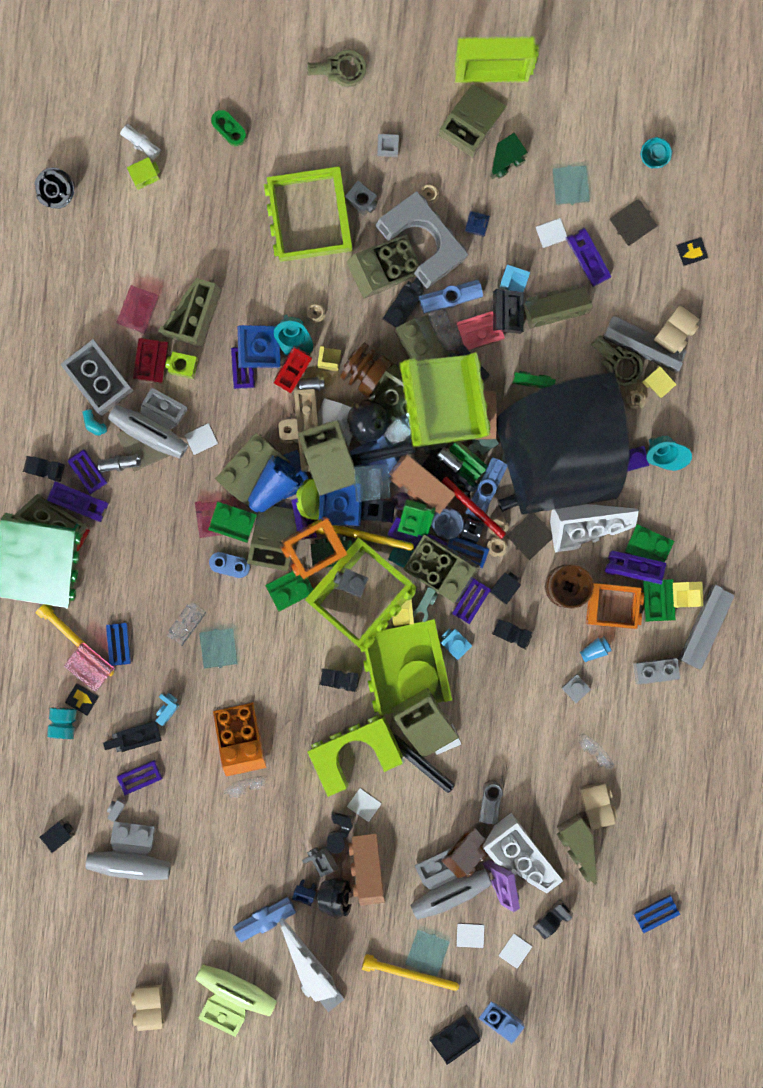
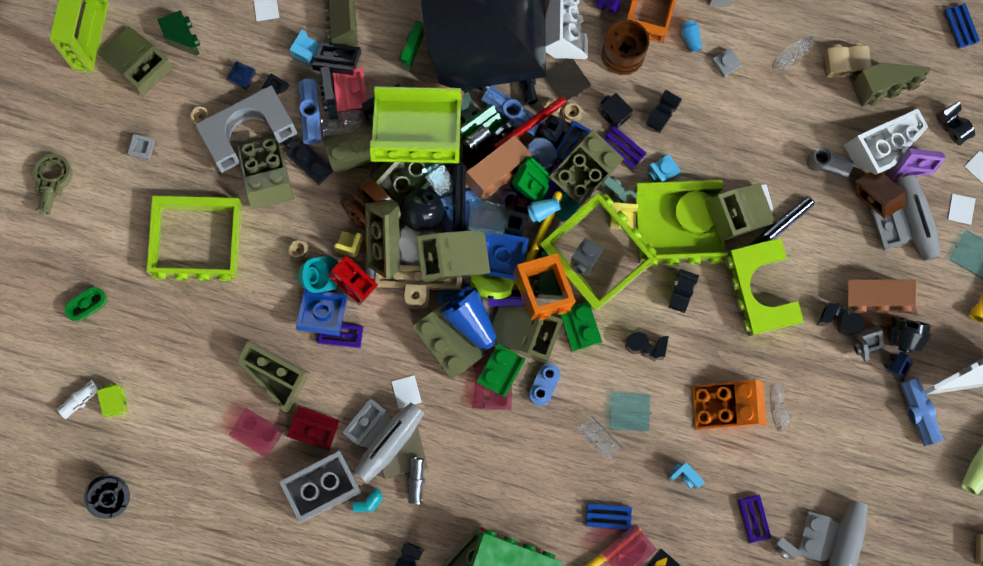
camera: 85 degrees left, 10 degrees down
(76, 501) = (448, 534): dark purple plate -> none
(78, 457) = (401, 526): dark purple tile -> none
(134, 737) = (711, 516): black hinge -> none
(190, 369) = (325, 386): lime brick -> none
(282, 645) = (638, 342): none -> black leg
(333, 389) = (383, 237): none -> olive slope
(358, 190) = (181, 179): dark grey brick -> none
(364, 805) = (815, 291): white sticker -> none
(390, 532) = (542, 209): none -> medium azure cone
(473, 258) = (278, 84): none -> black tile
(473, 309) = (327, 89): none -> black plate

